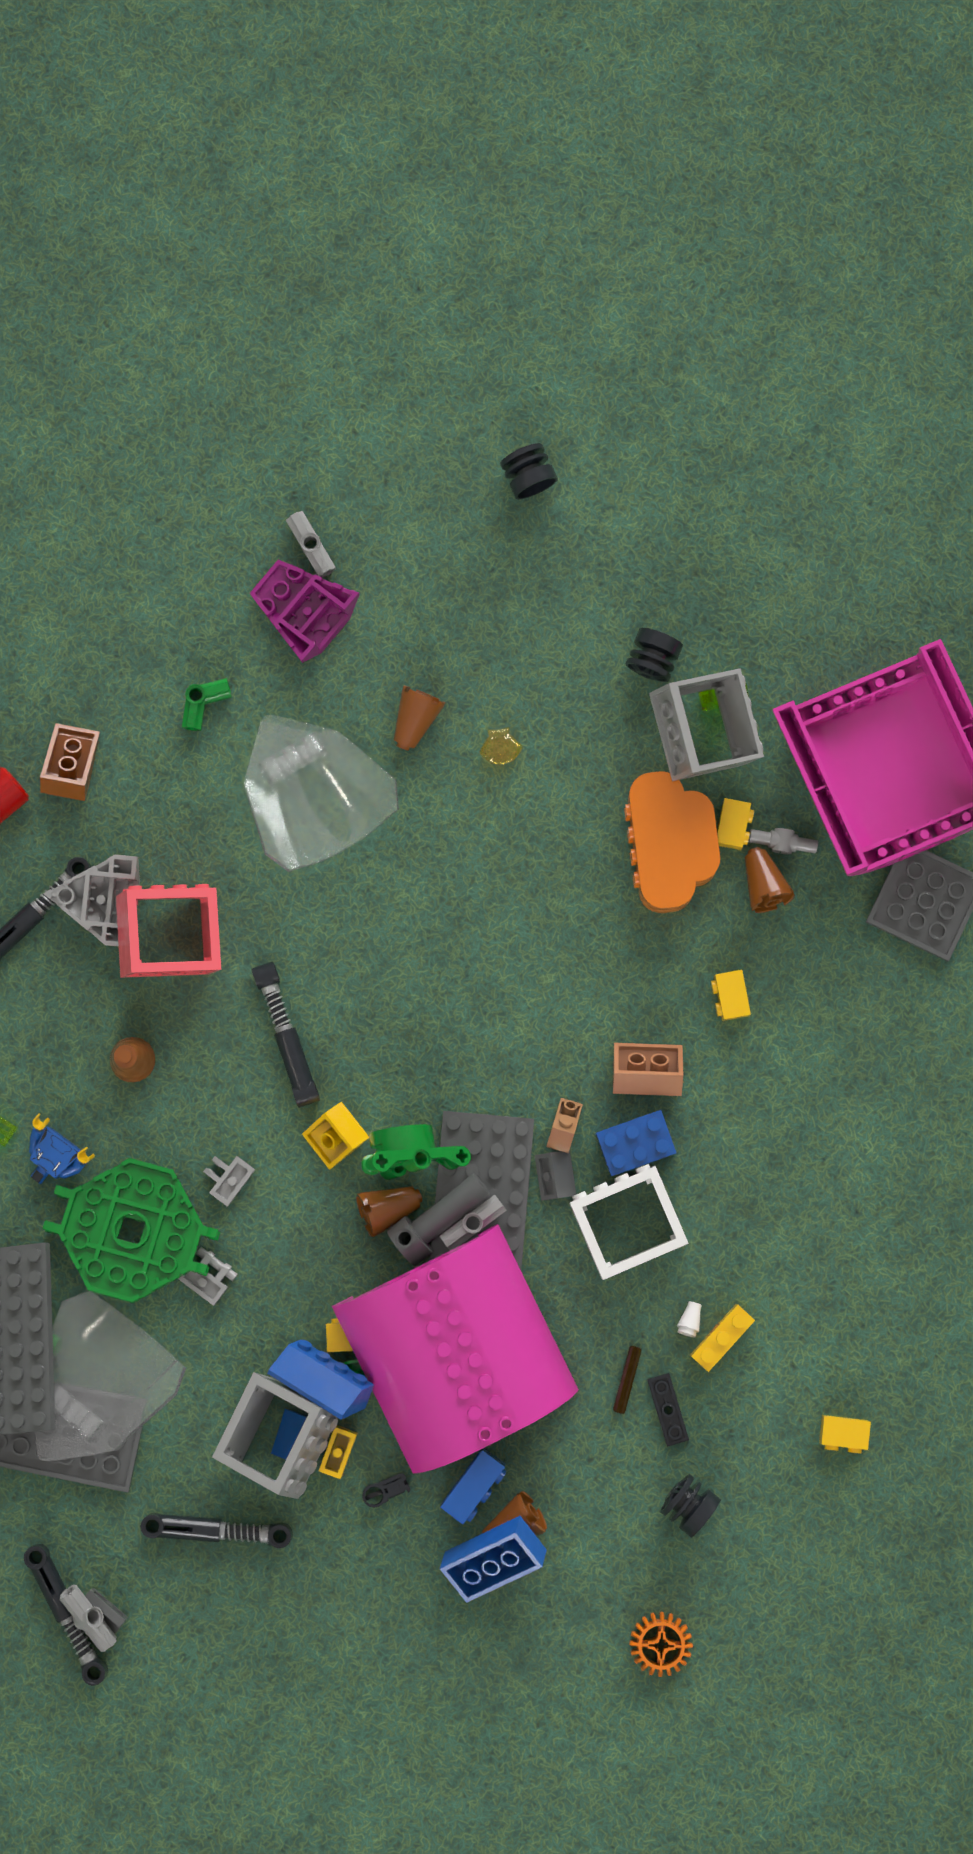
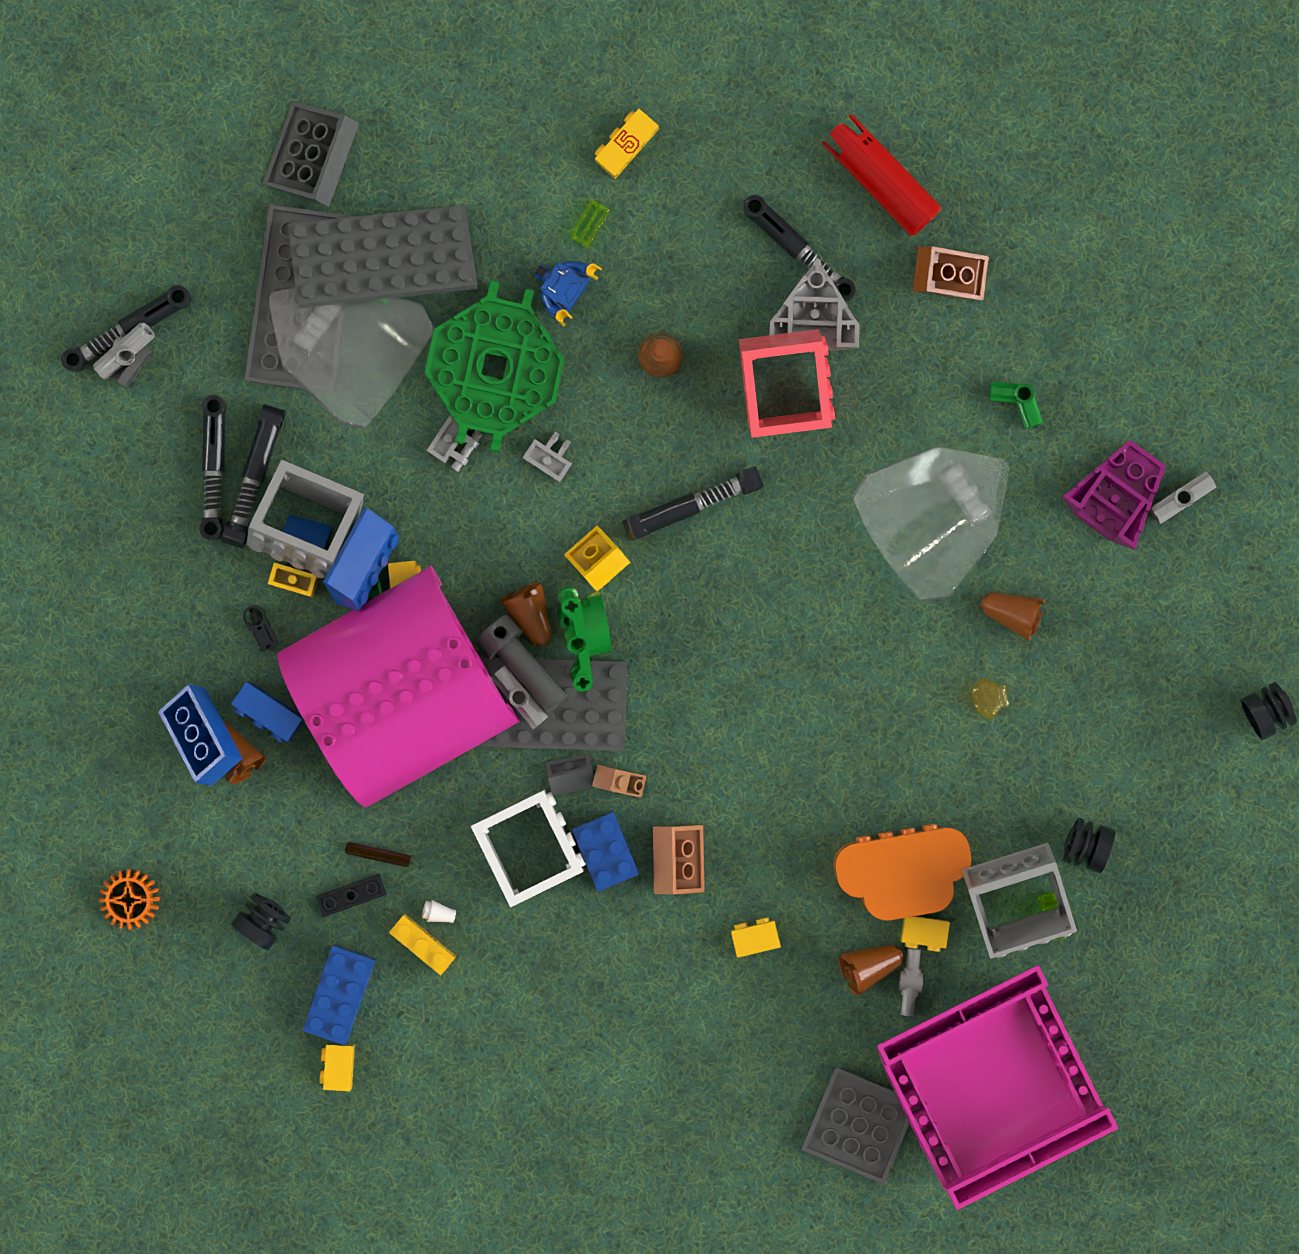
camera: 80 degrees right, 5 degrees up
(218, 1484) = (254, 473): none -> black piece
(770, 1427) = (339, 994): none -> blue brick

